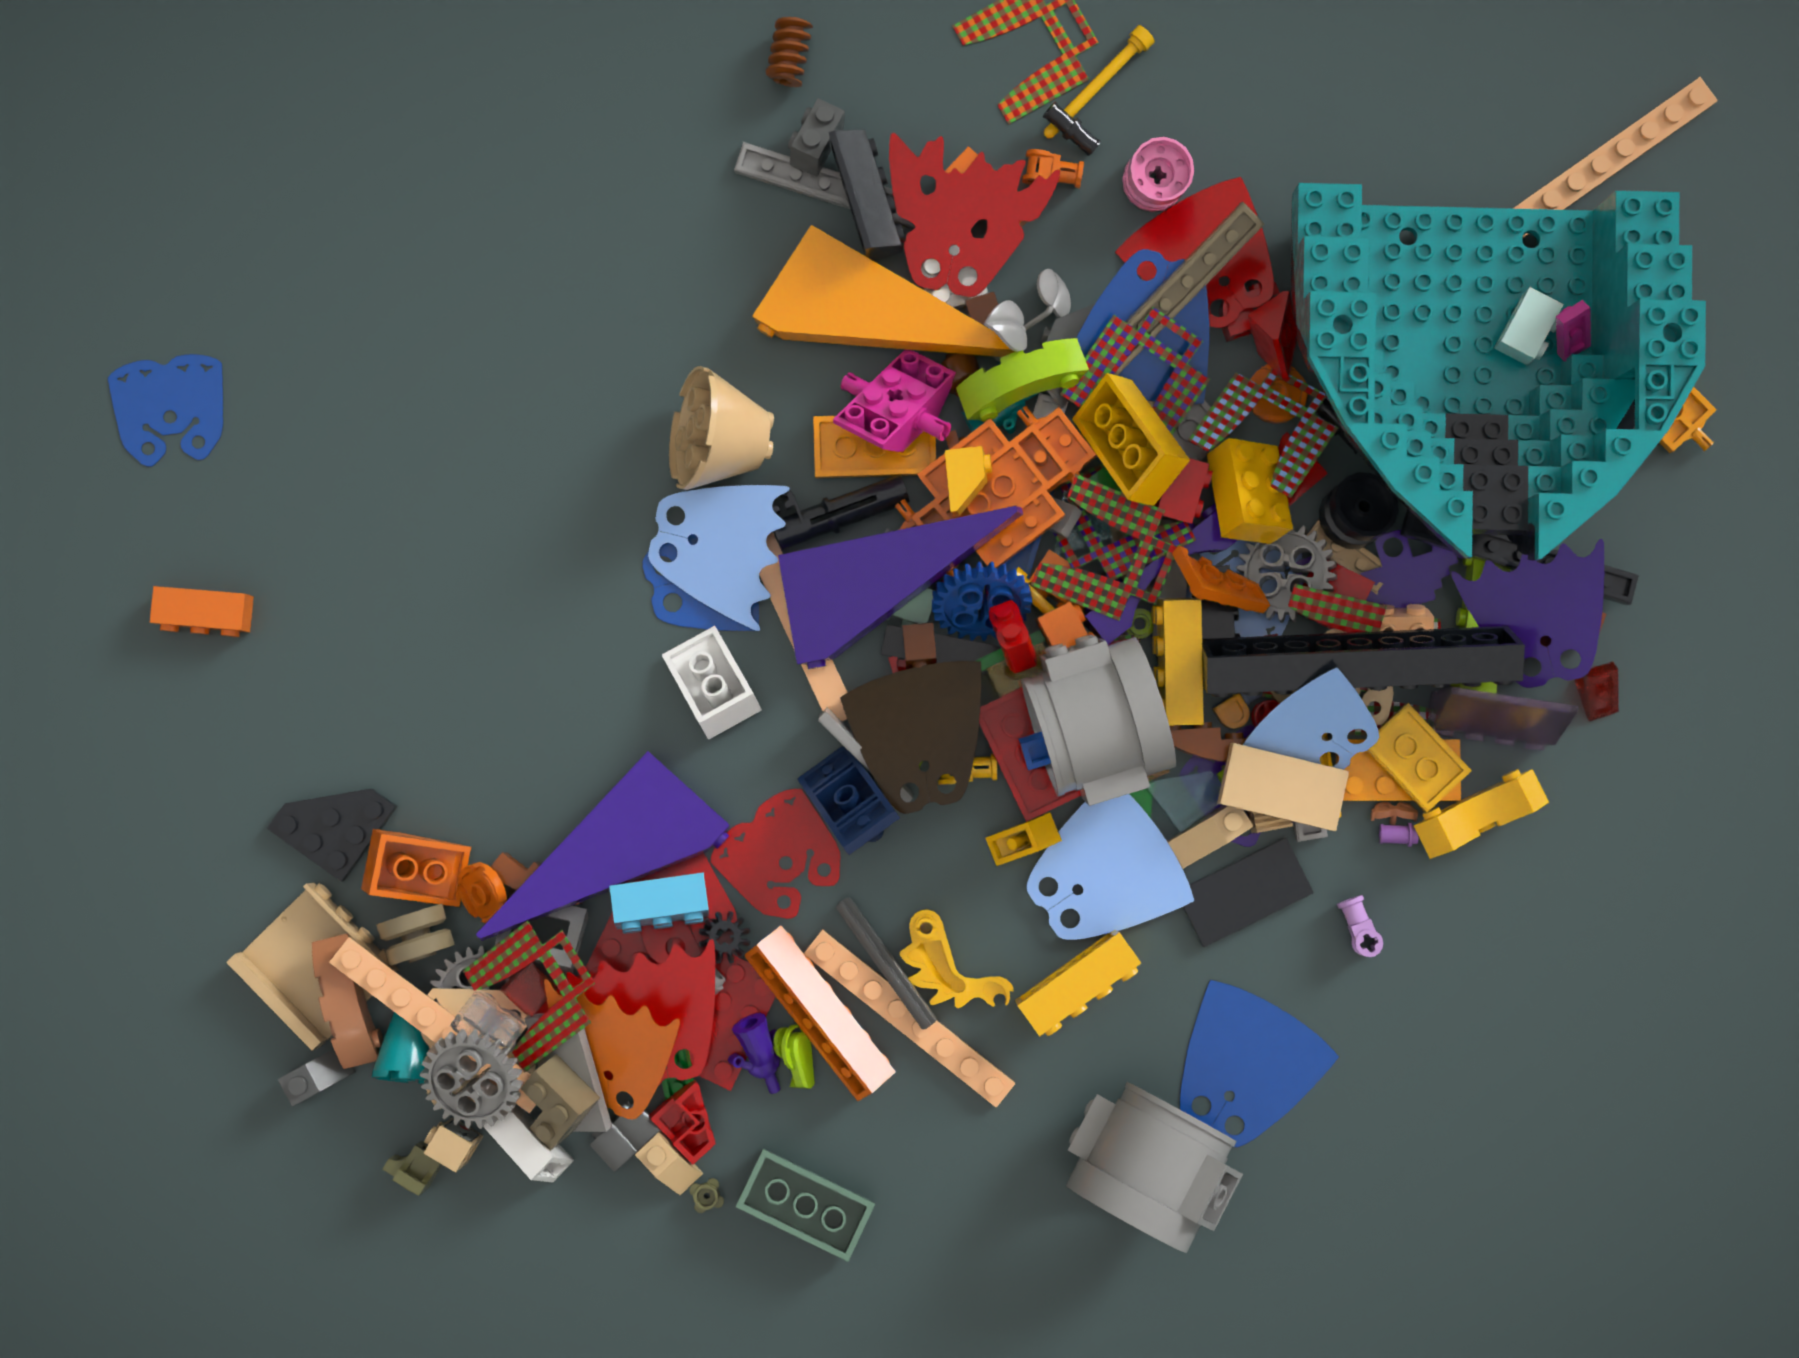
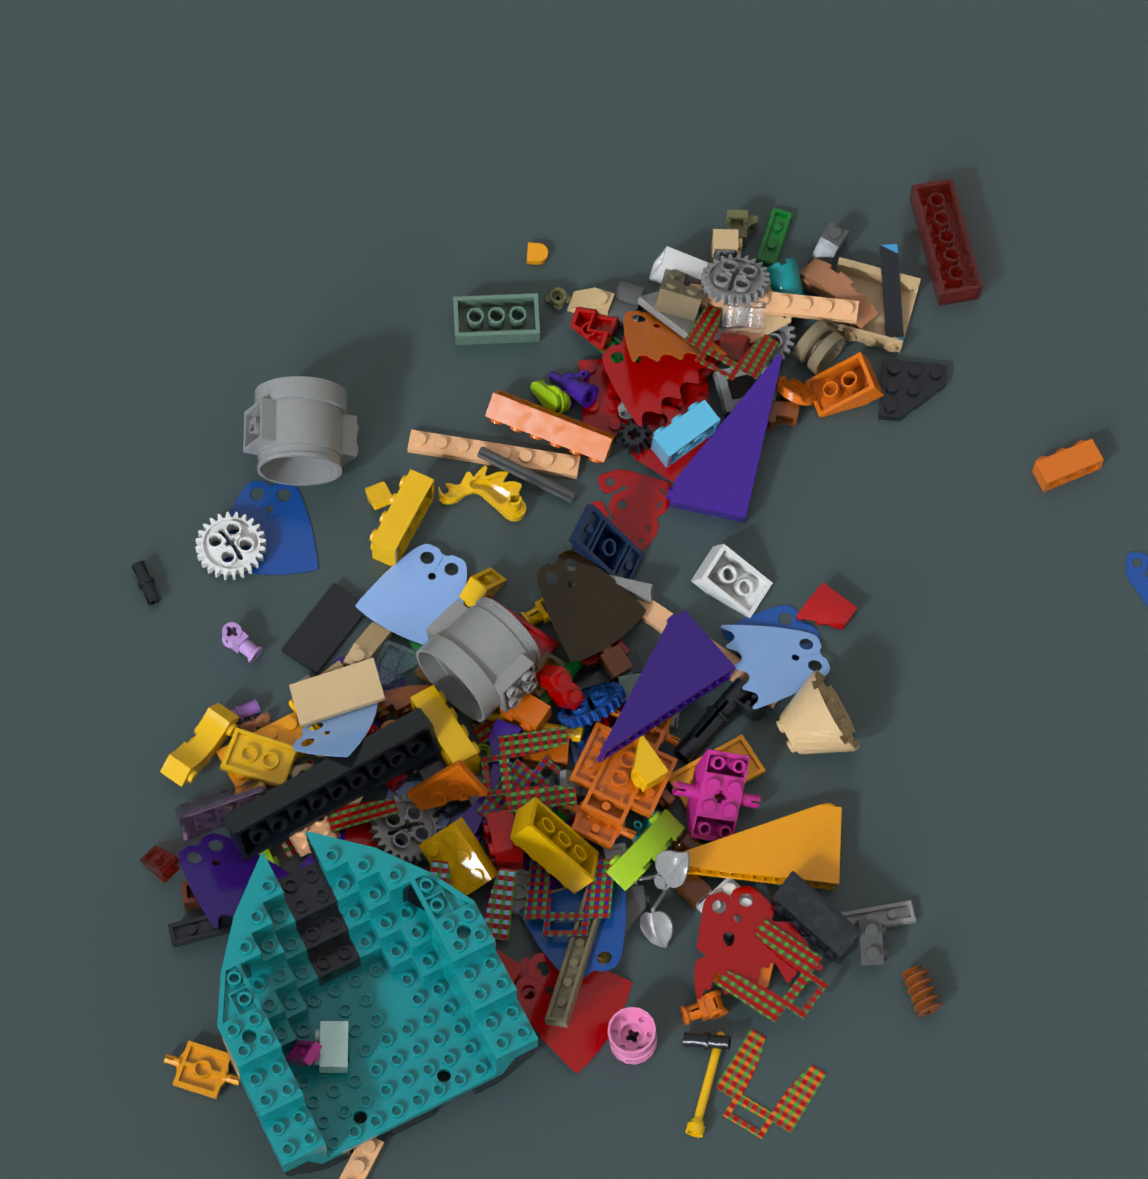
camera: 145 degrees right, 20 degrees down
(160, 1000) = (945, 242): none -> clear red brick
(275, 964) = (891, 291): none -> black sticker
(377, 1132) = (774, 237): none -> green tile
(615, 583) = (827, 608): none -> red slope
(697, 1276) = (536, 254): none -> light orange tile
(985, 131) = (764, 1000): none -> piece
(1086, 1035) = (378, 495): none -> yellow slope
(1334, 1060) = (214, 555): none -> white gear
(1437, 1073) = (146, 583): none -> black pin

